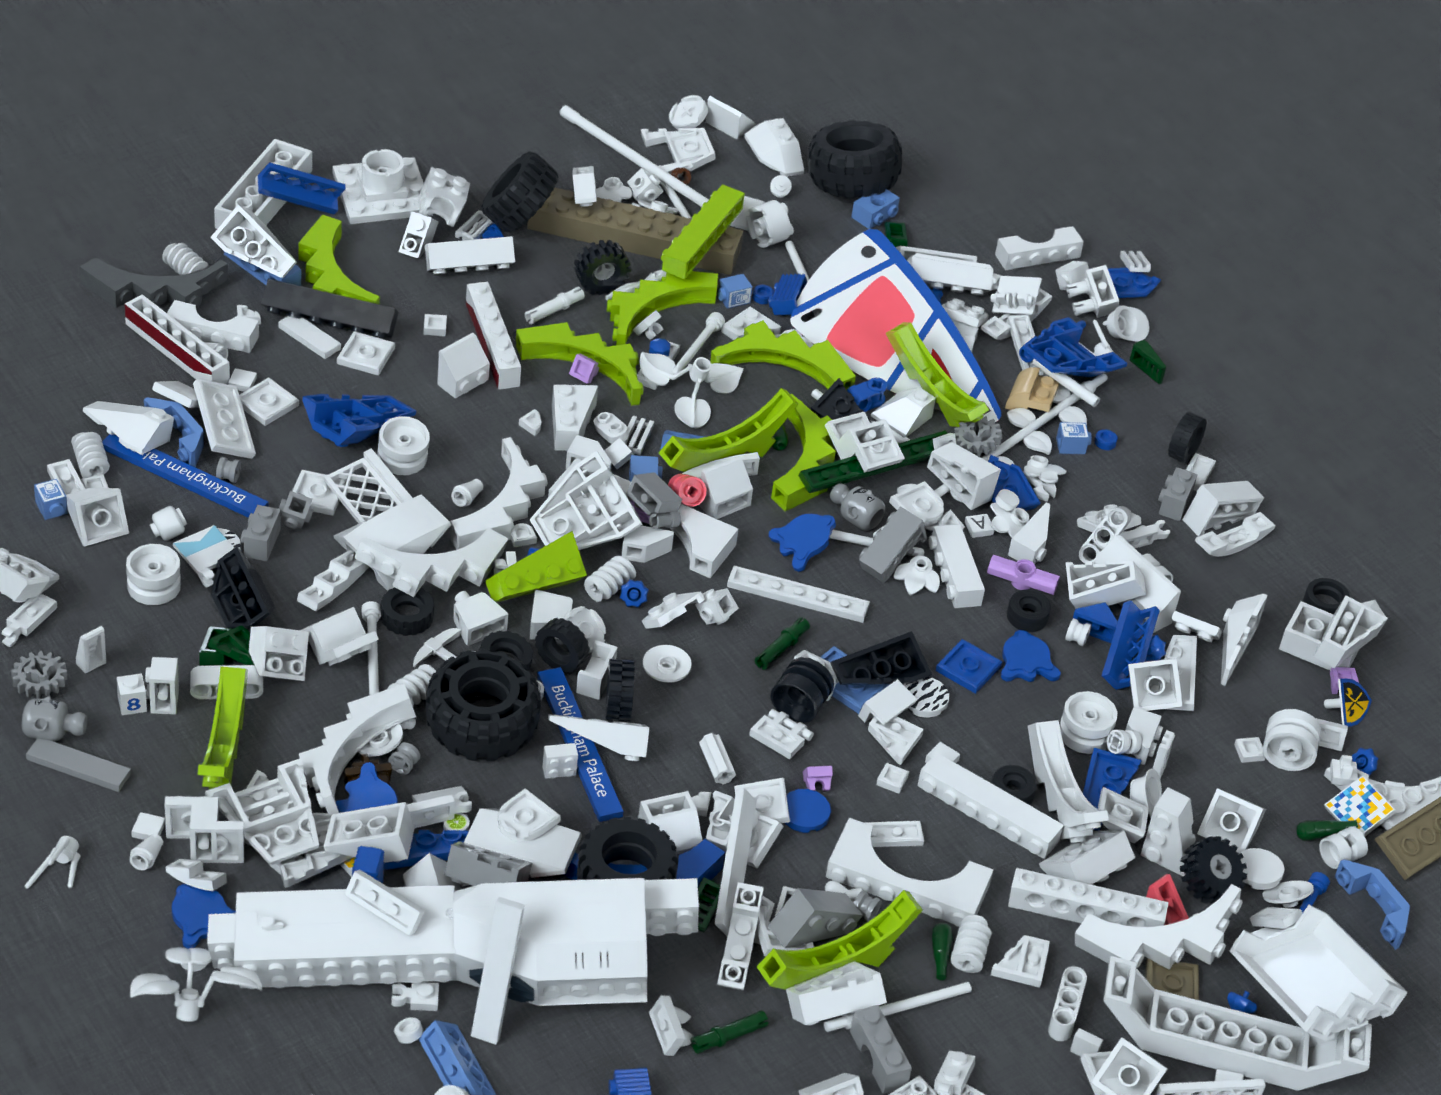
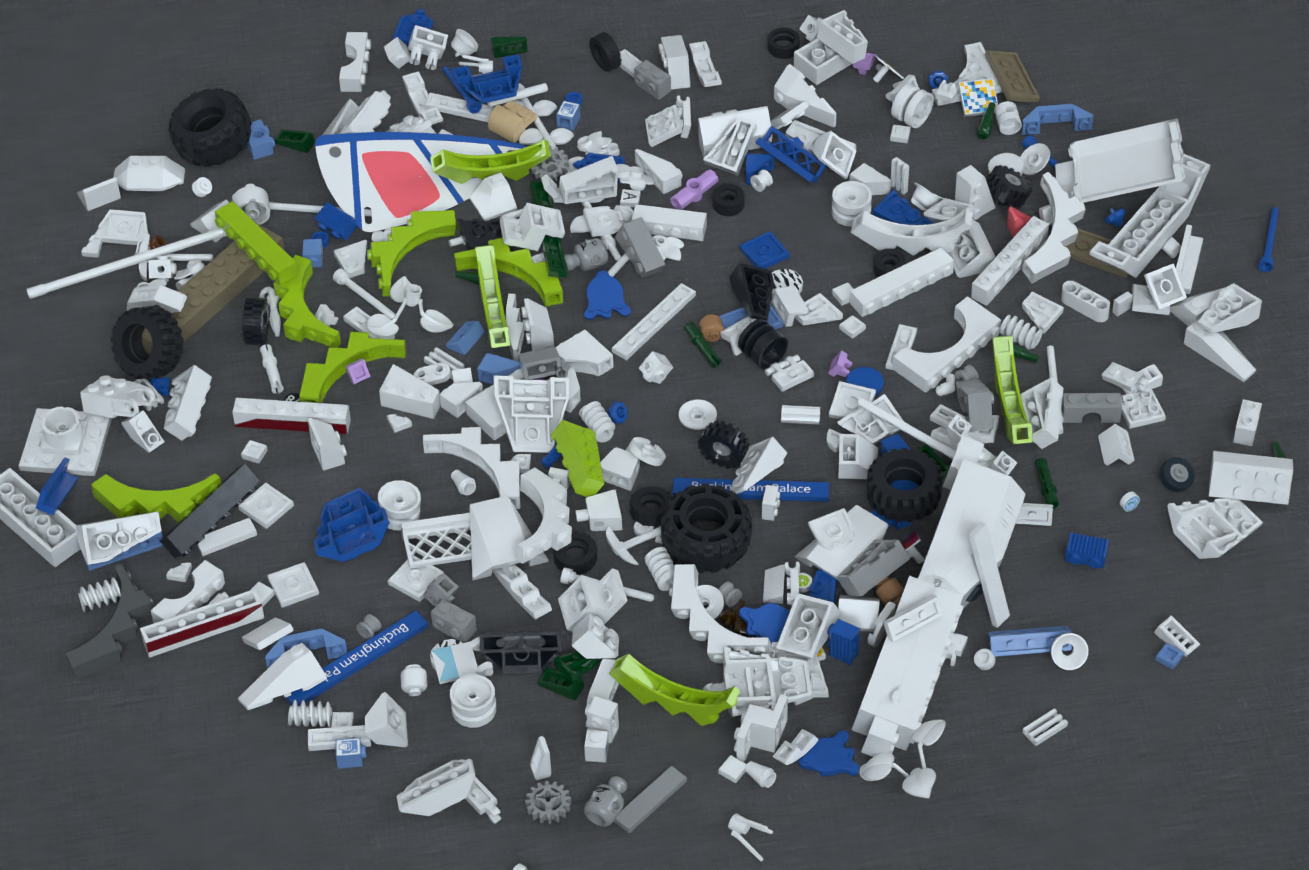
camera: 60 degrees left, 5 degrees up
(224, 418) = (311, 612): white tile -> none
(570, 636) = (656, 459): black tyre -> none
(594, 678) = (688, 456): white panel -> none
(659, 346) = (359, 317): blue tile -> none
(671, 608) = (645, 394): white wing -> none
(688, 112) = (81, 214): white tile -> none
(689, 488) = (534, 341): coral wheel -> none
(812, 640) = (711, 326): none -> medium nougat head
(868, 393) = (468, 208): blue piece -> none
(1016, 295) = (408, 90): white hinge -> none
(1026, 657) = (770, 217): blue tile -> none
(1109, 524) = (686, 136): white beam -> none
(1124, 741) = (878, 186): white wheel -> none
(1139, 261) = (397, 13): white tile -> none
(1231, 819) = (964, 156): white slope -> none
(1276, 917) = (1060, 167): white tile -> none

